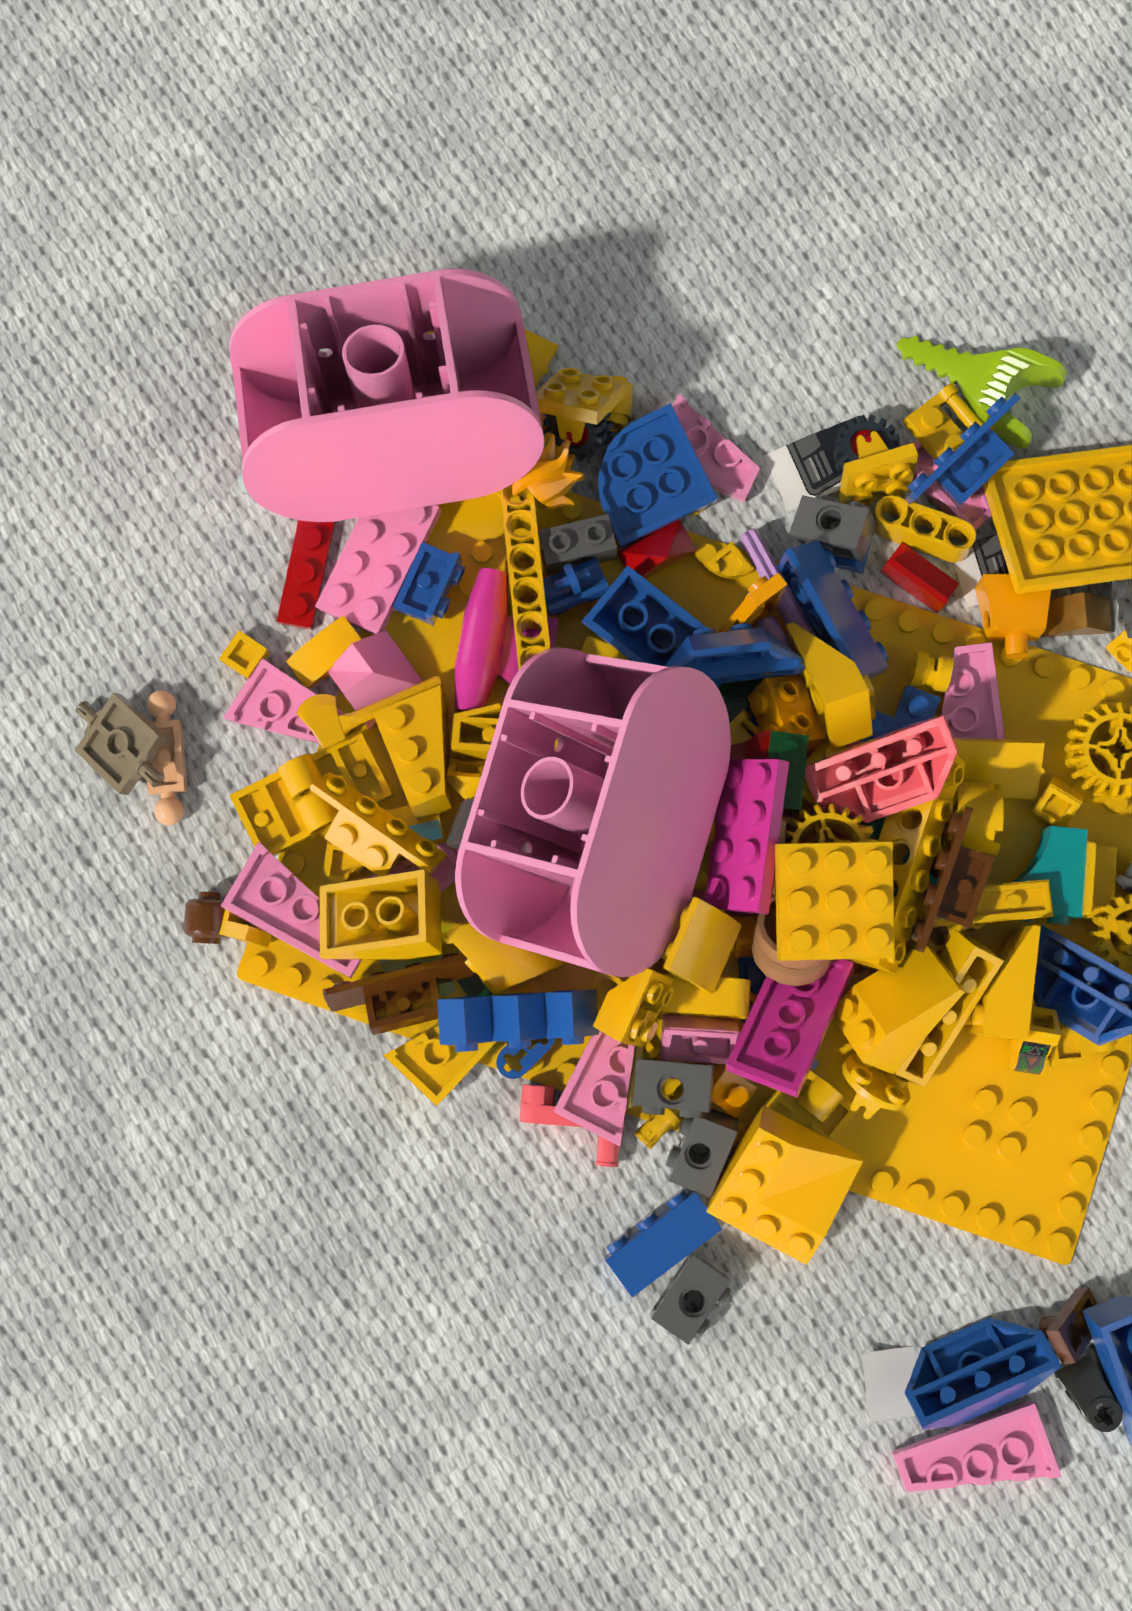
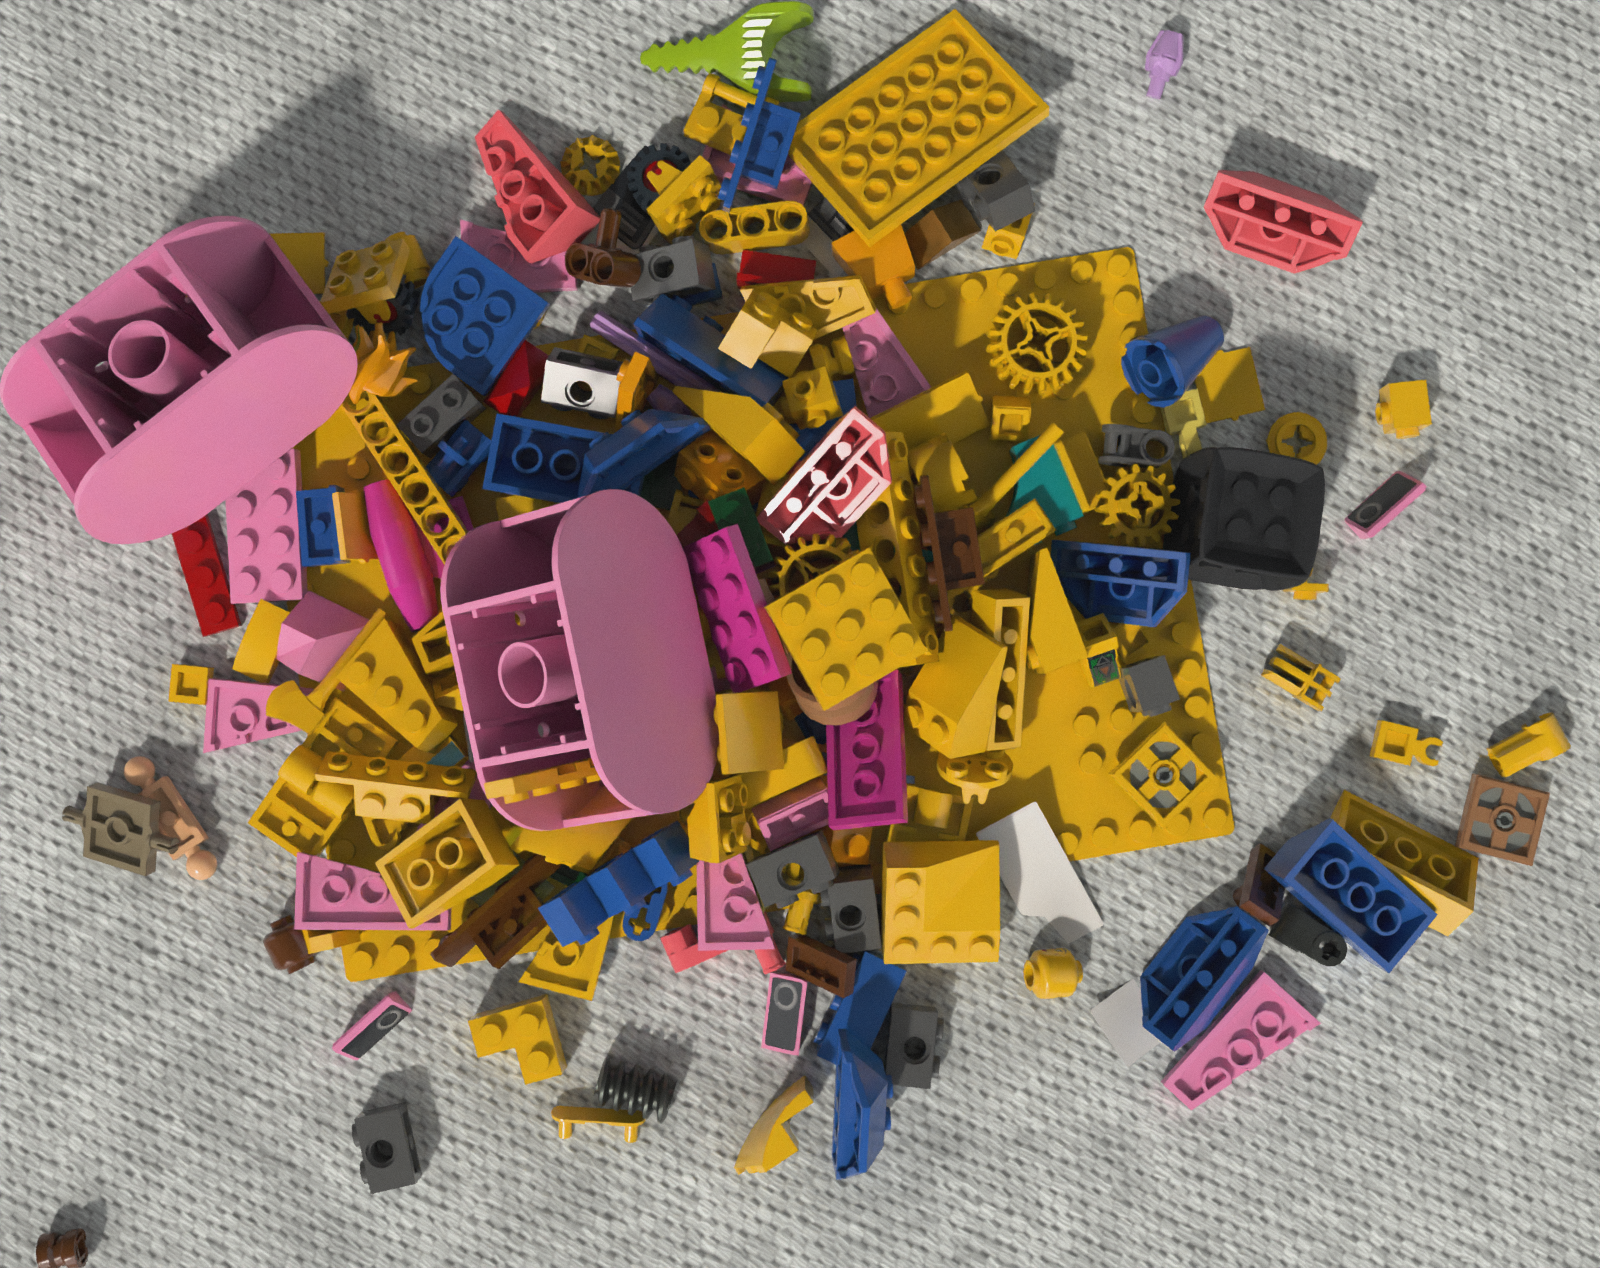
camera: 25 degrees left, 5 degrees up
(207, 1121) = (383, 1171): none -> dark grey brick
(236, 1027) = (372, 1027): none -> slope
(361, 1195) = (568, 1114): none -> yellow piece
(369, 1102) = (528, 1029): none -> yellow brick
(430, 1204) = (634, 1090): none -> pearl dark grey piece
(455, 596) = (353, 527): none -> piece
(510, 890) = (542, 781): none -> yellow wing
(527, 1310) = (771, 1136): none -> yellow slope
(594, 1209) = (784, 1013): none -> black slope
(618, 1326) = (859, 1107): none -> blue wedge
(650, 1183) = (821, 964): none -> reddish brown tile
(731, 581) = (561, 389): none -> brick
(750, 411) = (538, 202): none -> coral wedge
(782, 488) = (603, 261): none -> reddish brown beam
(797, 416) = (607, 169): none -> yellow gear
(846, 1302) = (1052, 973): none -> yellow head
(881, 1210) = (1041, 874): none -> white sticker
(892, 621) = (768, 334): none -> yellow brick
(899, 693) = (810, 398): none -> yellow brick
(932, 618) = (825, 301): none -> yellow wing
(1034, 1180) = (1163, 774): none -> yellow piece
(1042, 849) = (985, 503): none -> yellow piece
(1064, 1094) = (1148, 686): none -> dark grey brick

